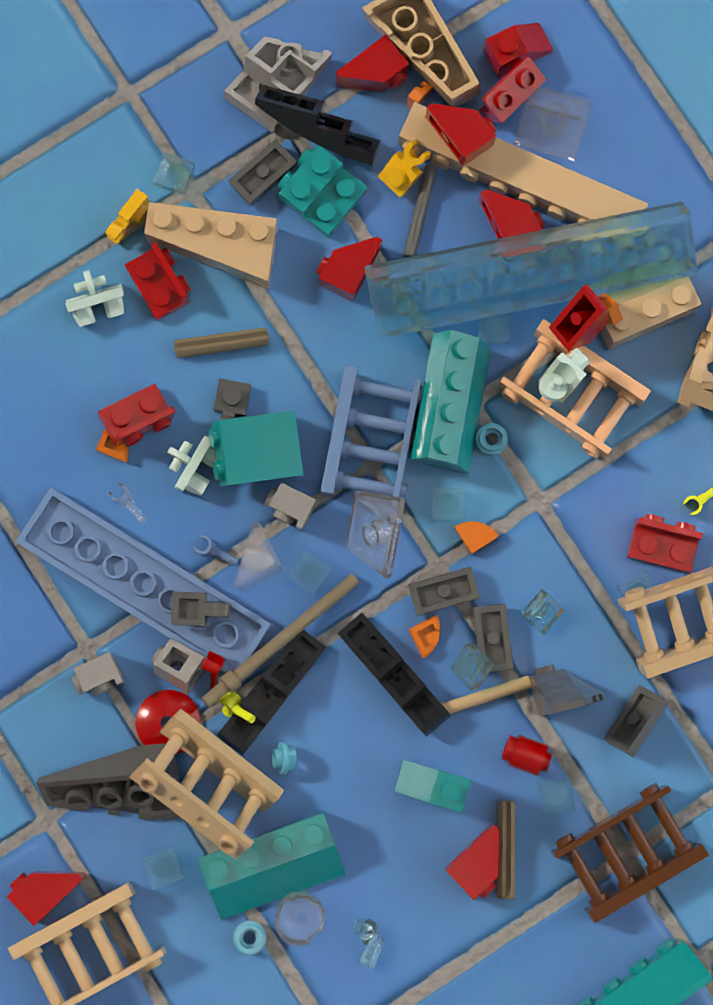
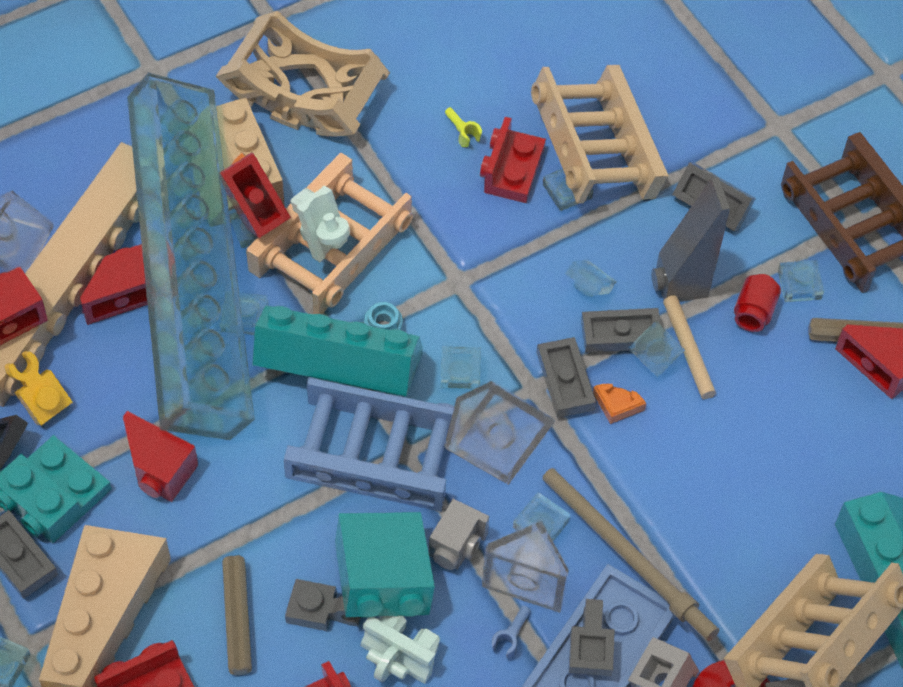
camera: 85 degrees left, 25 degrees down
(213, 664) = (665, 629): red hand -> none
(231, 706) = (715, 612): neon yellow hand -> none
(272, 691) = (693, 571): black slope -> none
(284, 758) = (774, 557): medium azure plate -> none
(394, 674) = (665, 435): black slope -> none
(420, 211) = (98, 384): dark grey bar -> none
(432, 786) = (803, 384): teal slope -> none
(475, 535) = (498, 344): orange tile -> none

